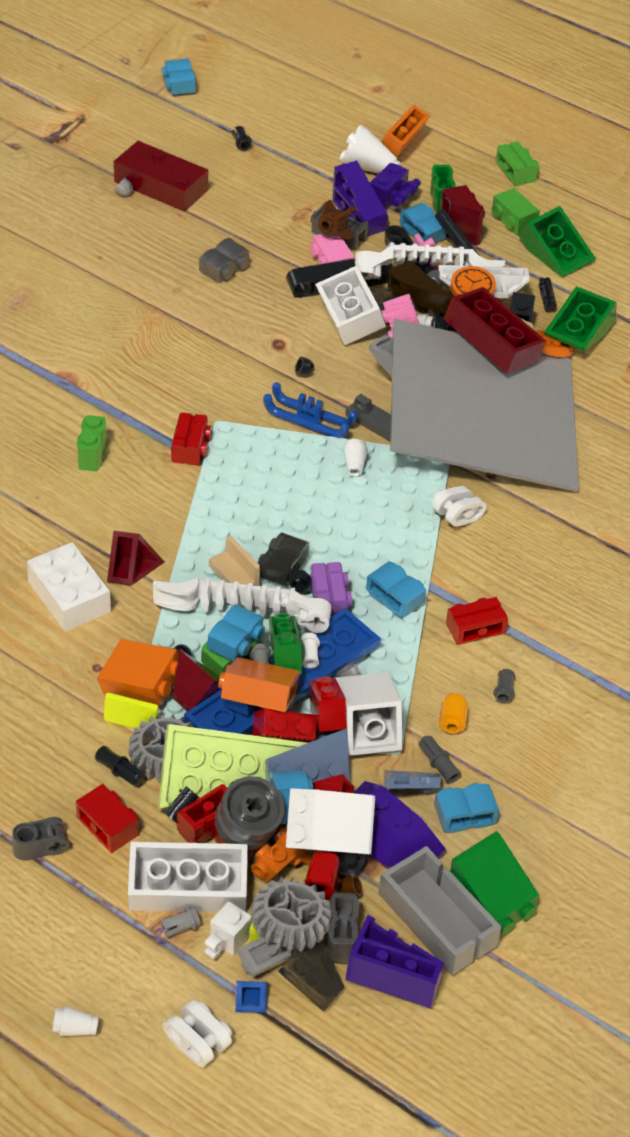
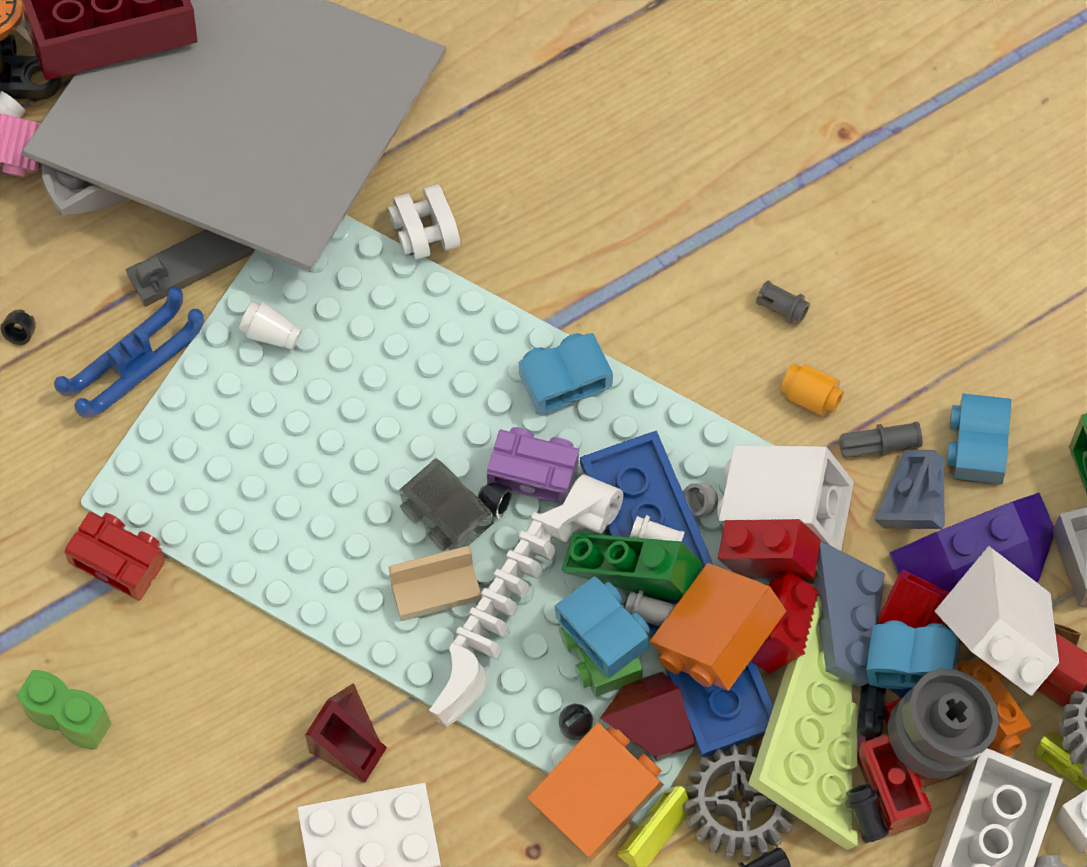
camera: 65 degrees left, 20 degrees up
(476, 620) = (653, 289): red brick -> none

